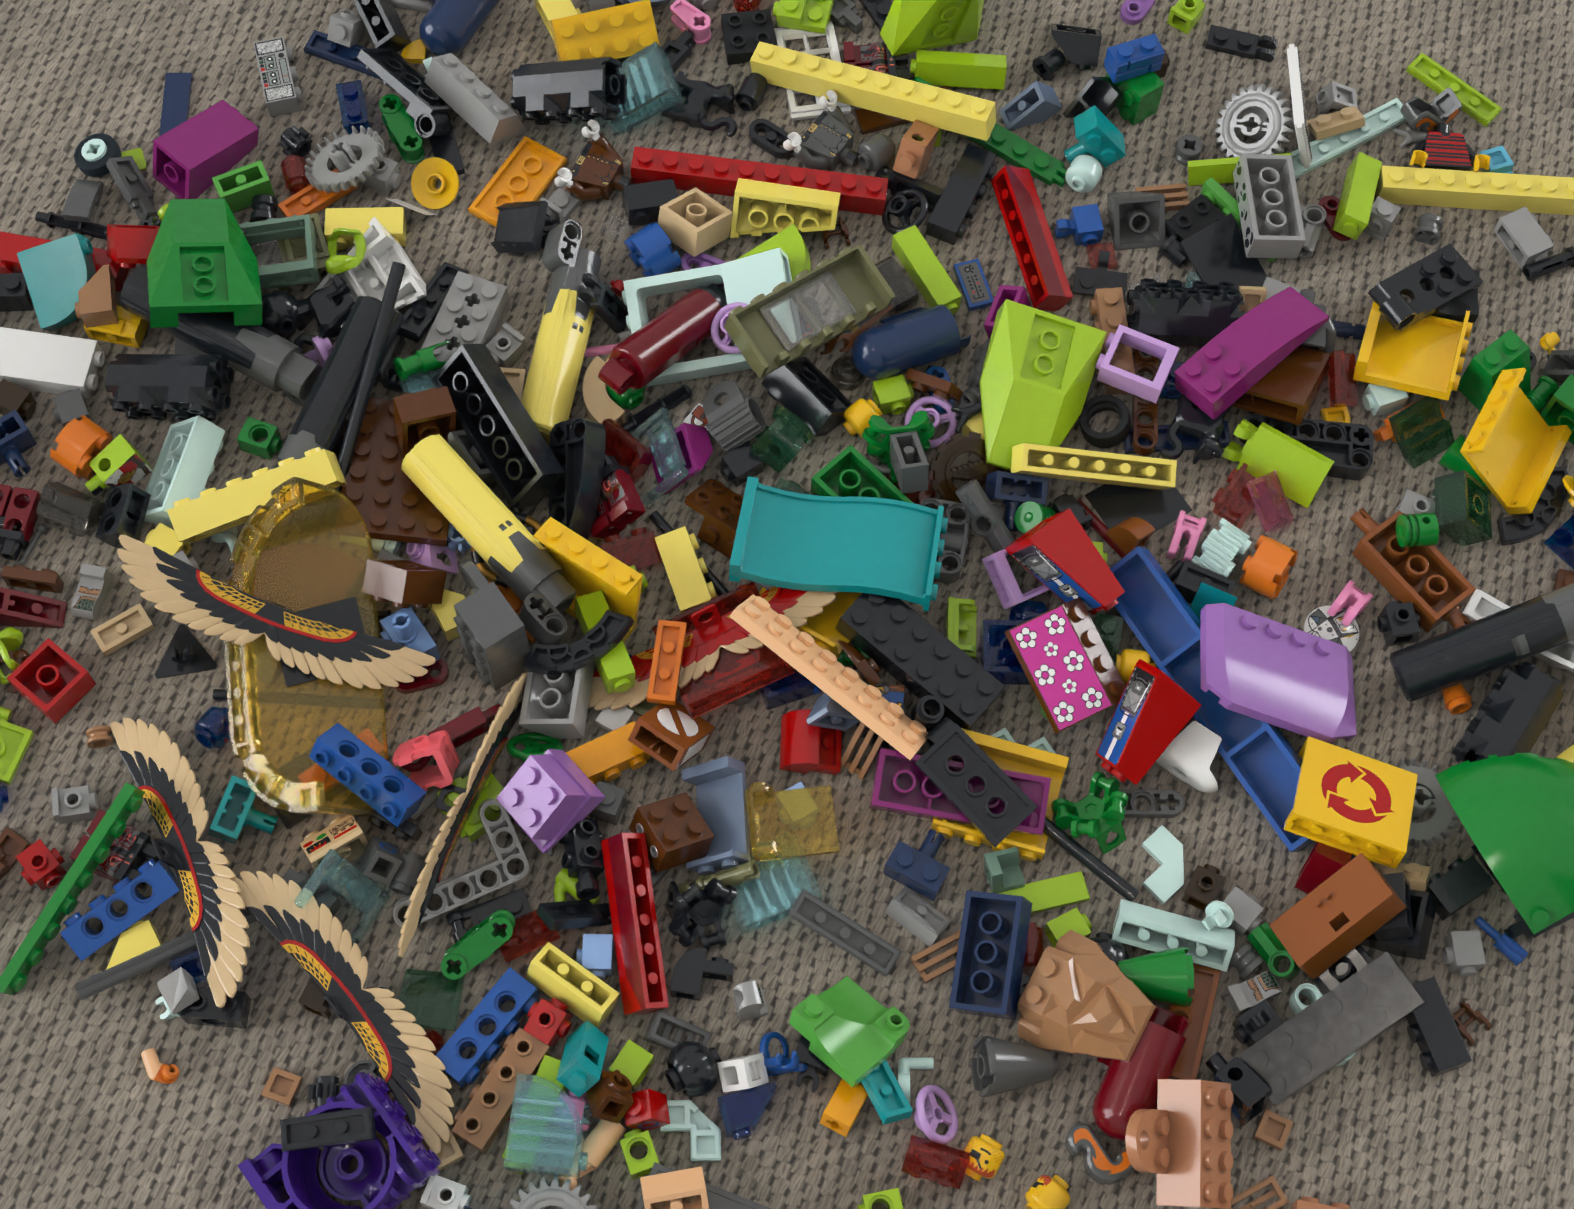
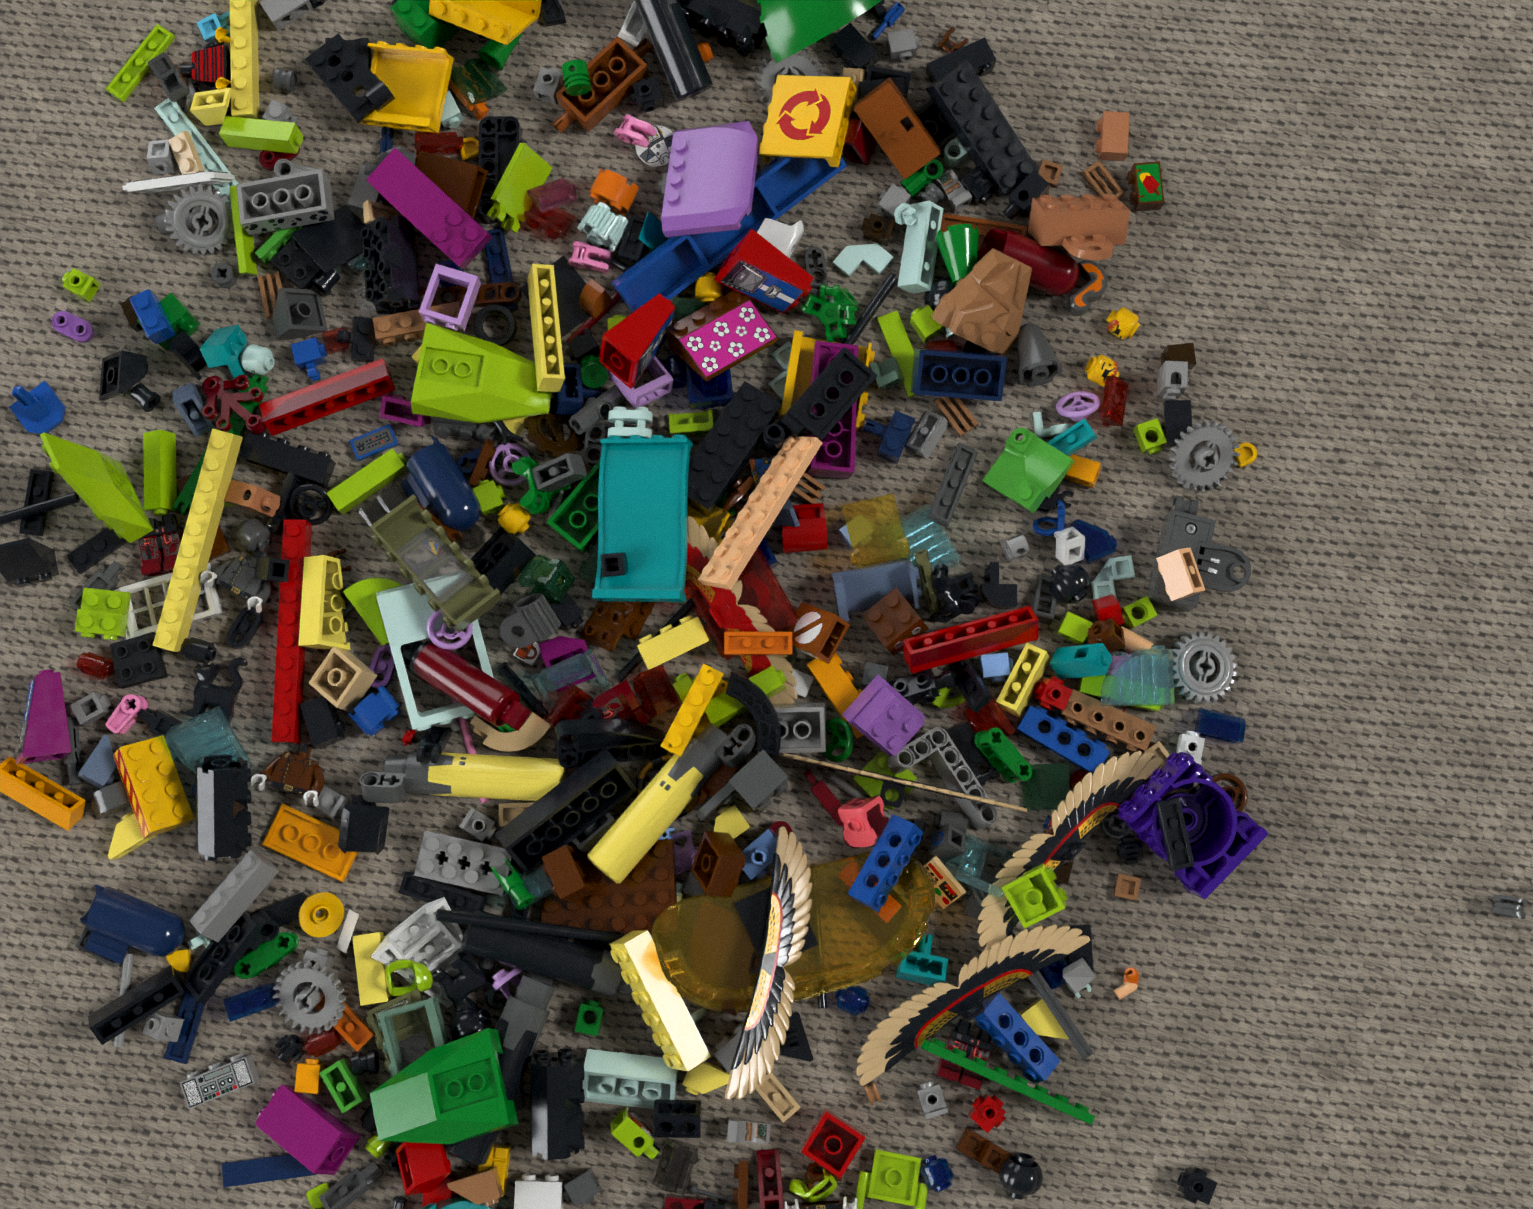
camera: 90 degrees left, 15 degrees up
(78, 445) = (618, 1168): orange brick -> none
(263, 151) = (308, 1077): none -> light orange brick
(287, 944) = (1035, 895): none -> lime plate
(784, 504) = (614, 564): none -> black brick
(829, 158) = (272, 569): none -> black brick
(970, 561) = (621, 416): none -> light aqua brick
(1051, 128) = (230, 401): none -> dark red plant
(1196, 423) = (490, 255): black animal -> none
(1241, 43) = (108, 239): black hinge -> none
(1394, 147) = (211, 106): none -> light yellow slope
(1463, 508) = (545, 48): clear green brick -> none

